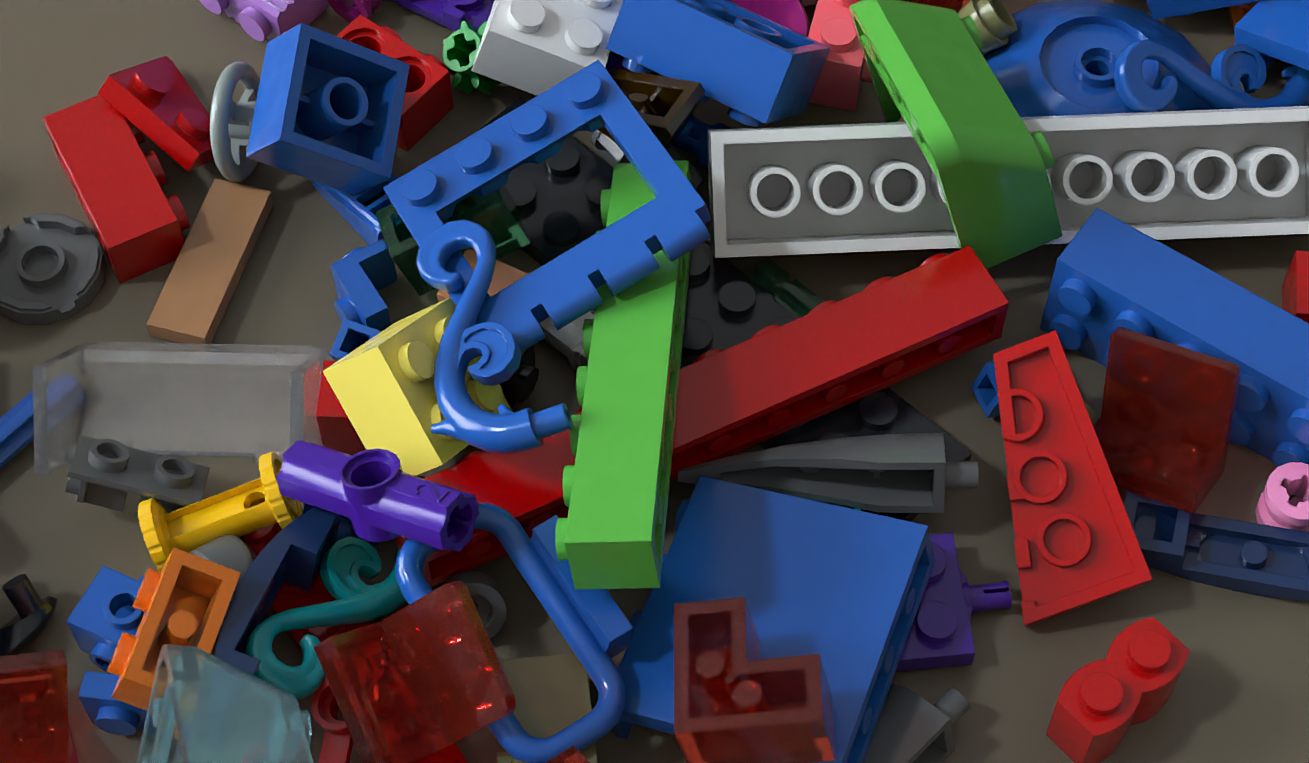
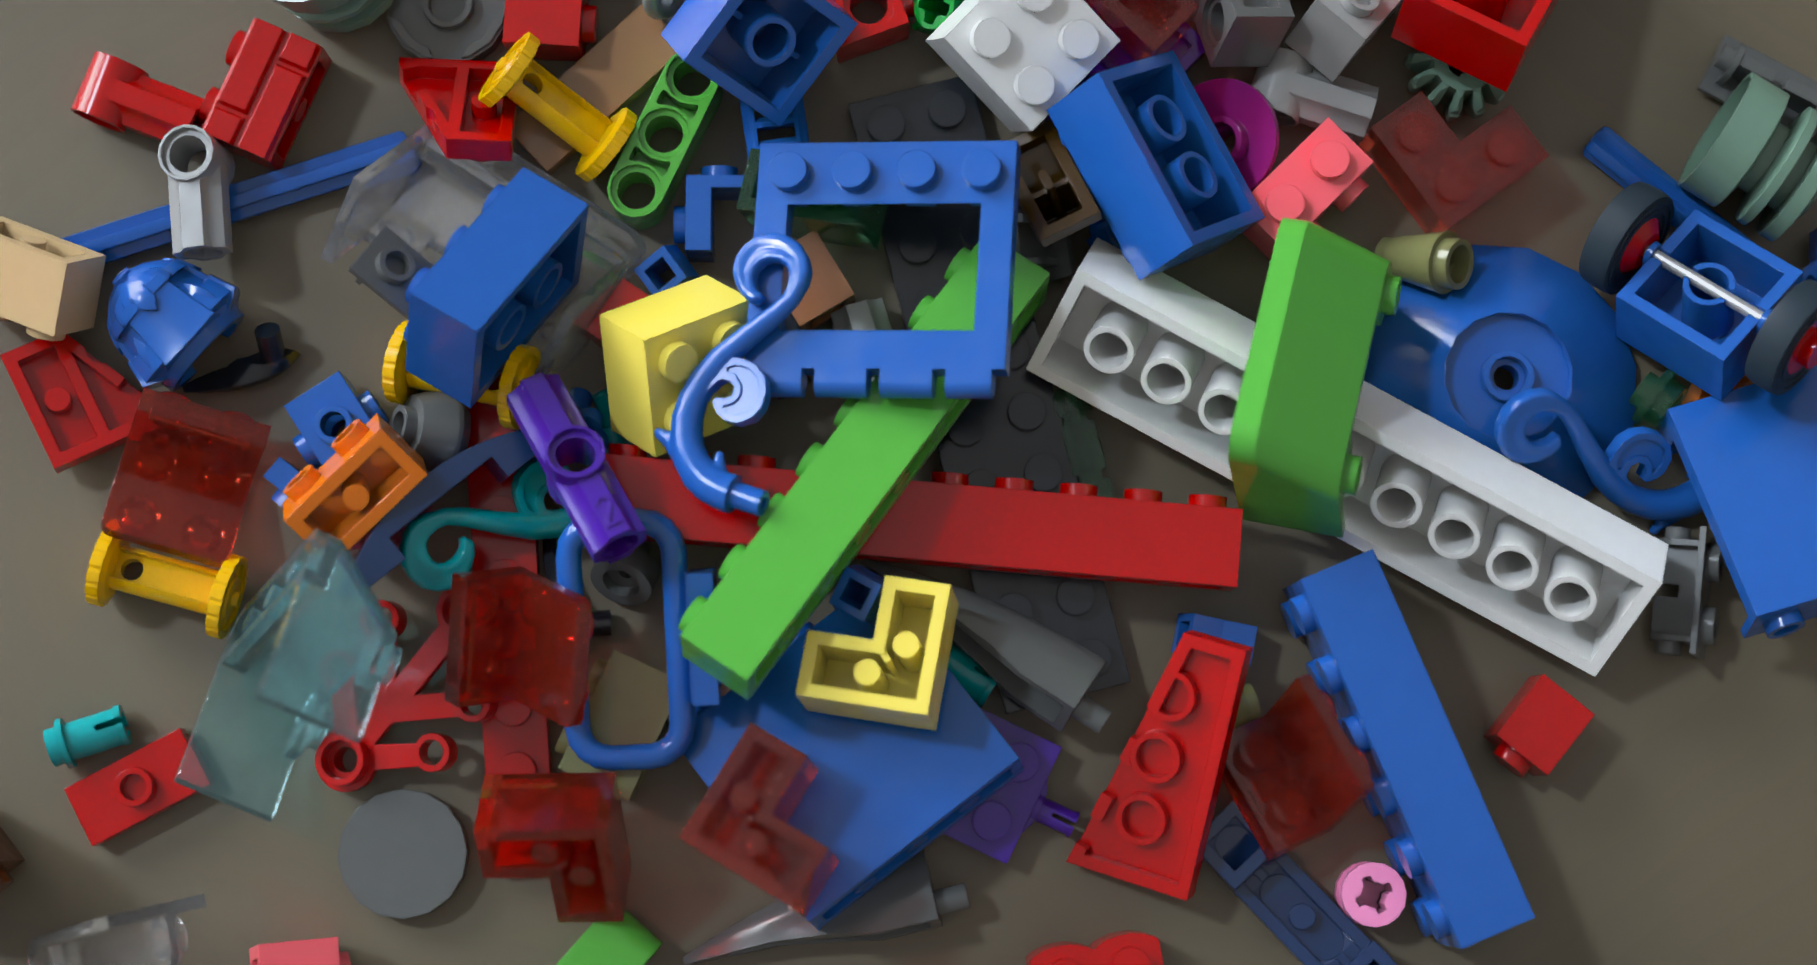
camera: 25 degrees right, 25 degrees up
(106, 317) = (448, 103): none -> red wing
(186, 271) = (558, 107): none -> yellow hose
(211, 410) = (494, 285): none -> blue brick
(290, 234) = (662, 170): none -> bright green beam
(701, 477) = (850, 588): none -> blue piece
(766, 513) = (897, 672): none -> light yellow brick
(1216, 34) = (1655, 397): none -> clear green plate

